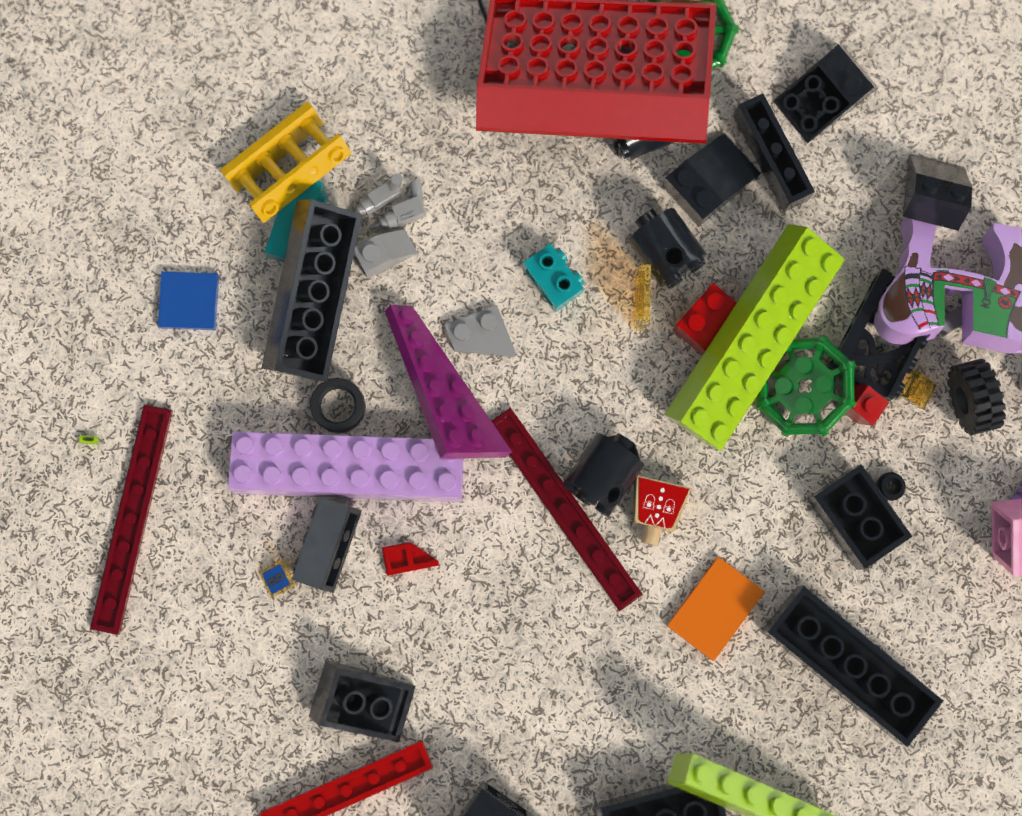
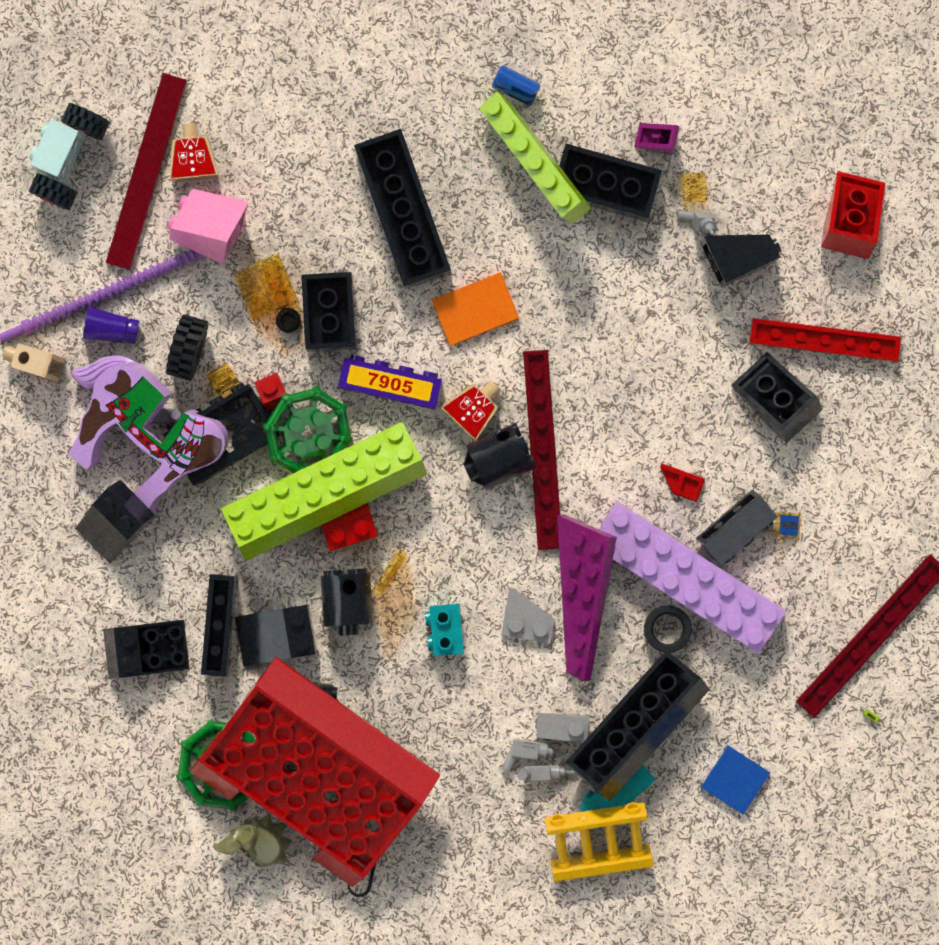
camera: 150 degrees left, 5 degrees up
(753, 483) = (390, 383): none -> brick
(933, 506) = (266, 287): none -> clear yellow slope

